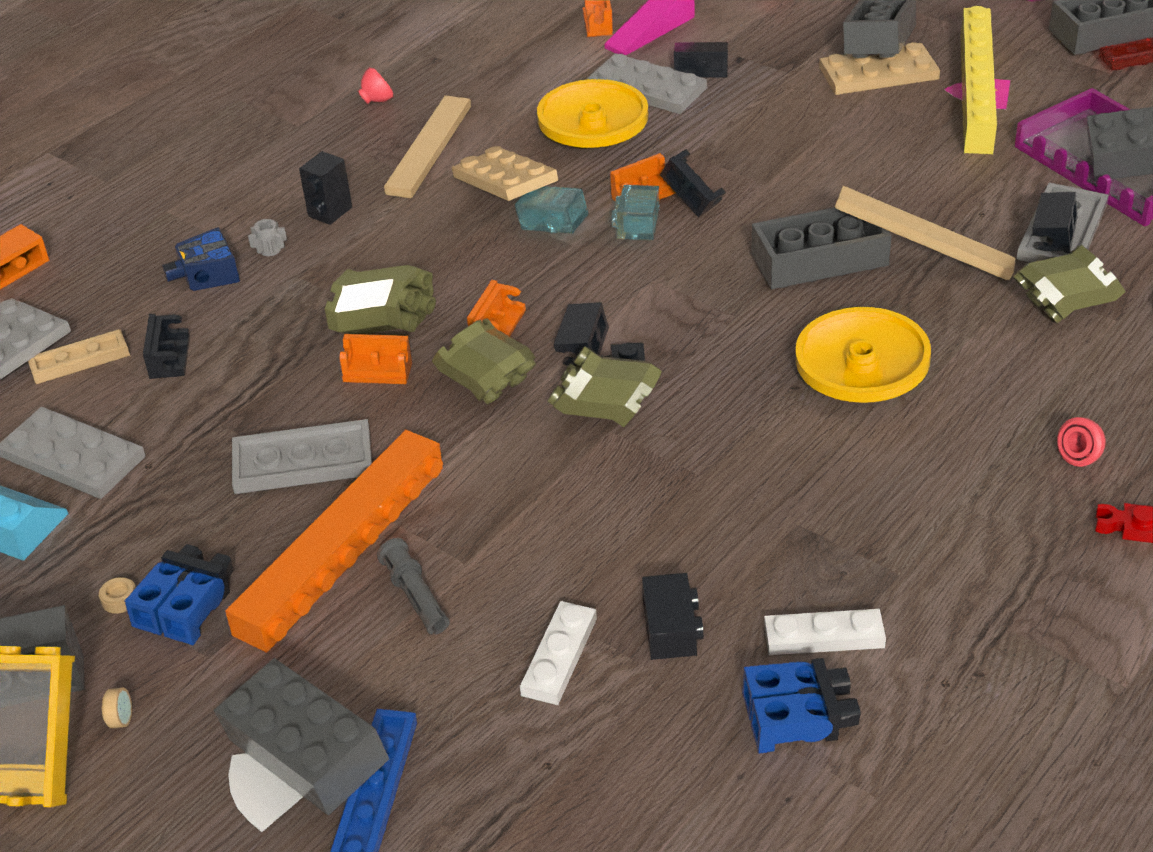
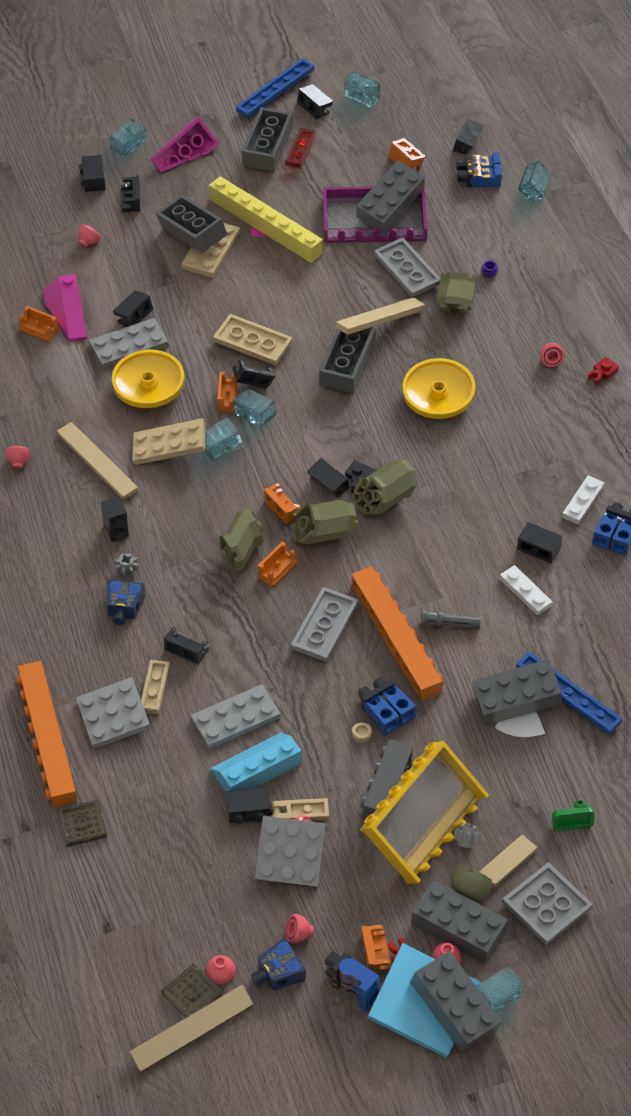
camera: 60 degrees left, 10 degrees up
(762, 164) = (252, 339): none -> tan plate
(1056, 218) = (413, 266): black hinge -> none

